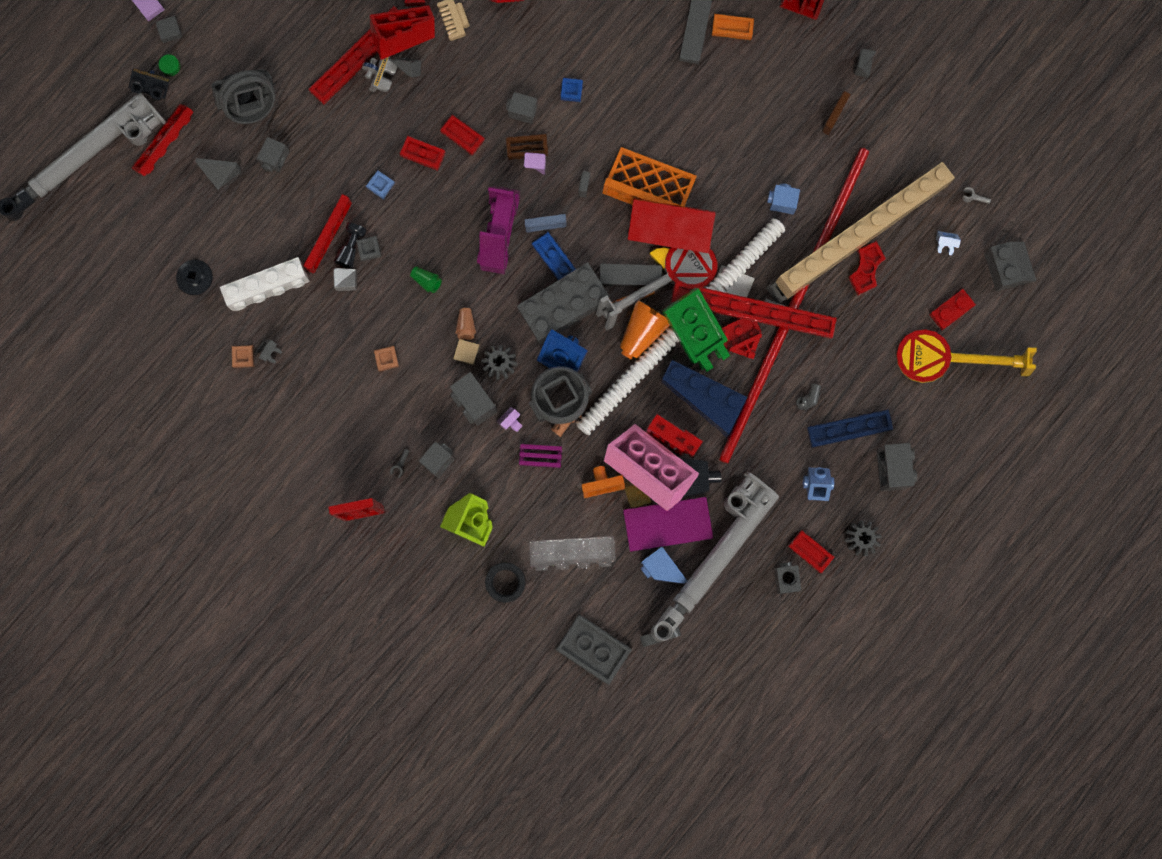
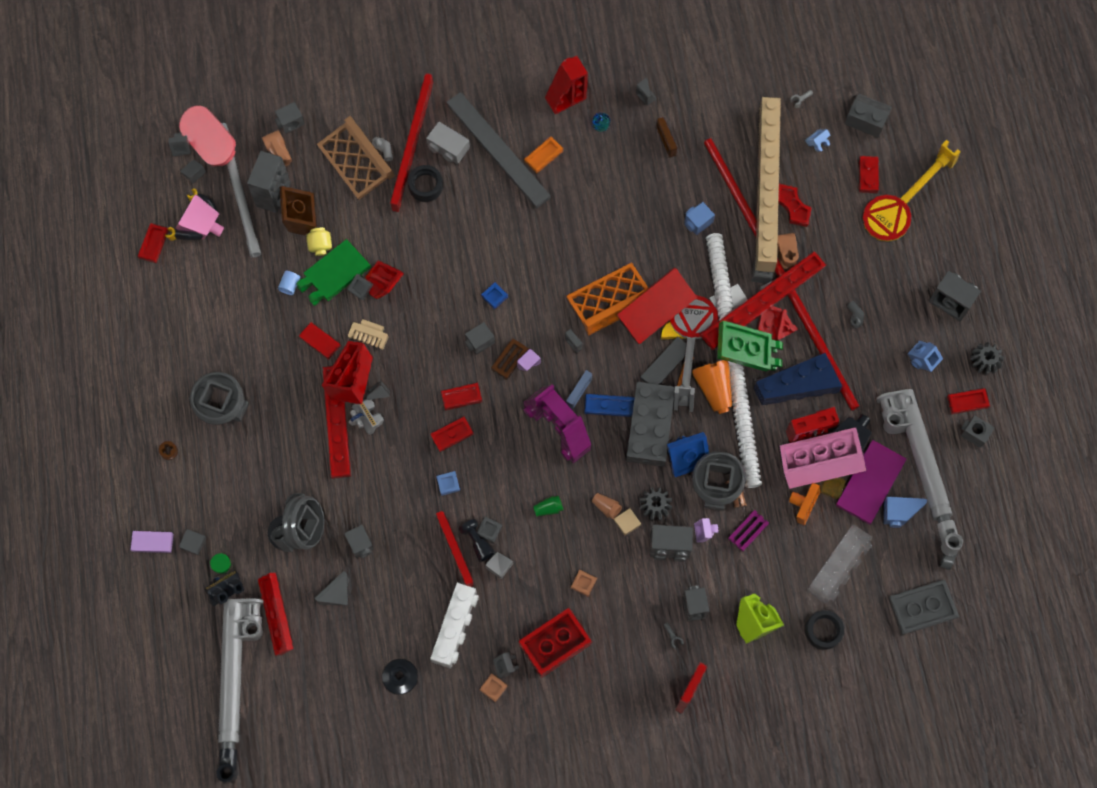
camera: 50 degrees left, 10 degrees down
(314, 374) = (555, 643): none -> red brick
(804, 49) = (601, 122): none -> tile
(820, 293) = (787, 250): none -> nougat piece
(850, 428) = (899, 306): dark blue tile -> none

